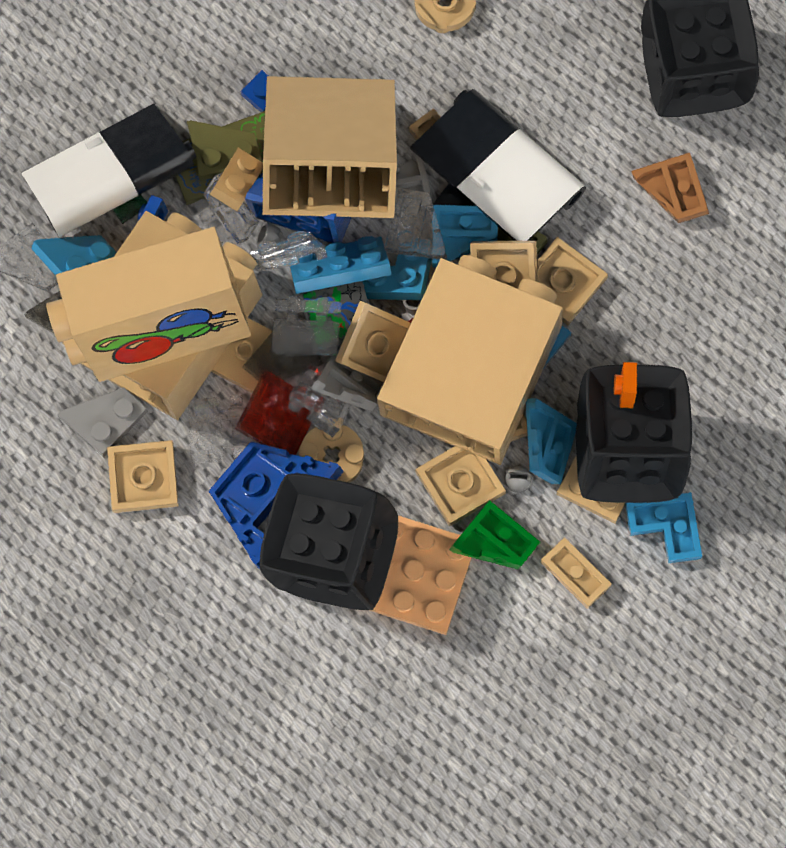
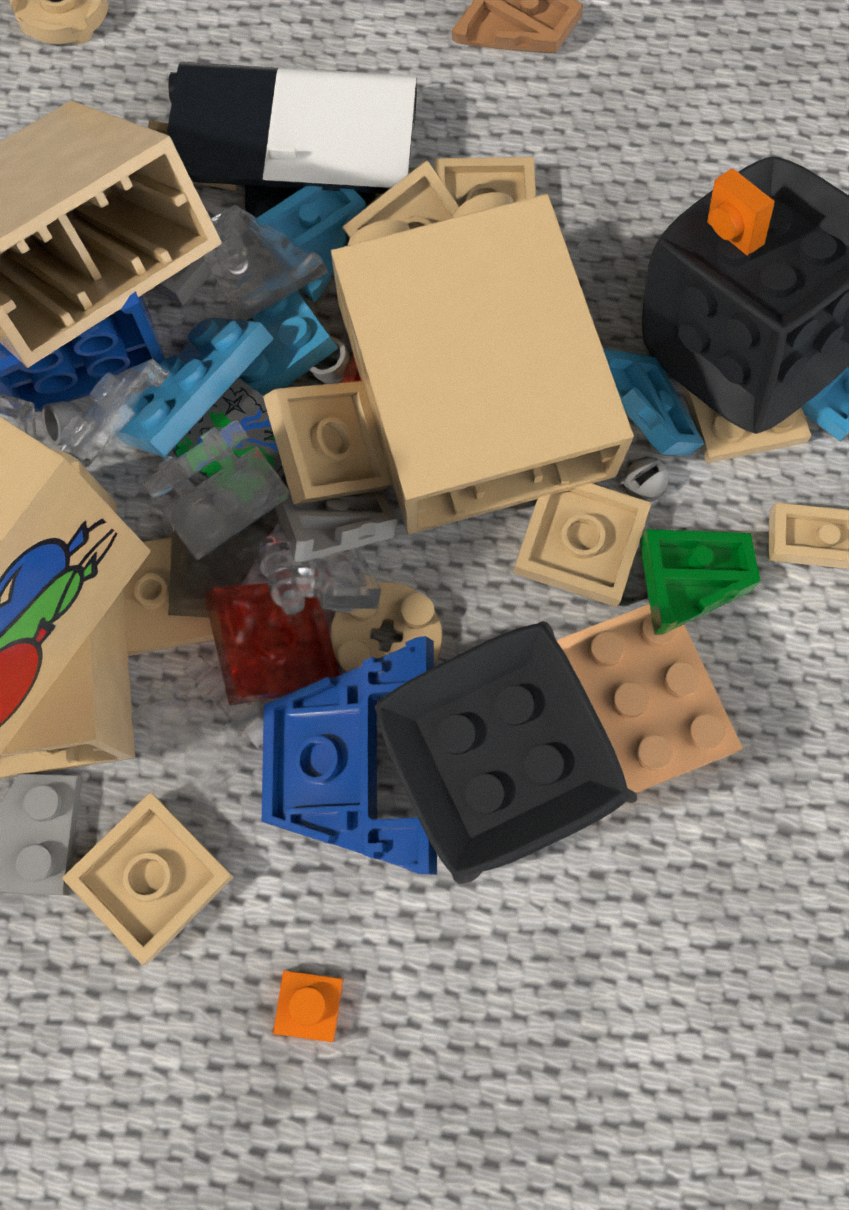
camera: 45 degrees left, 0 degrees up
(165, 584) = (308, 1006): none -> orange plate

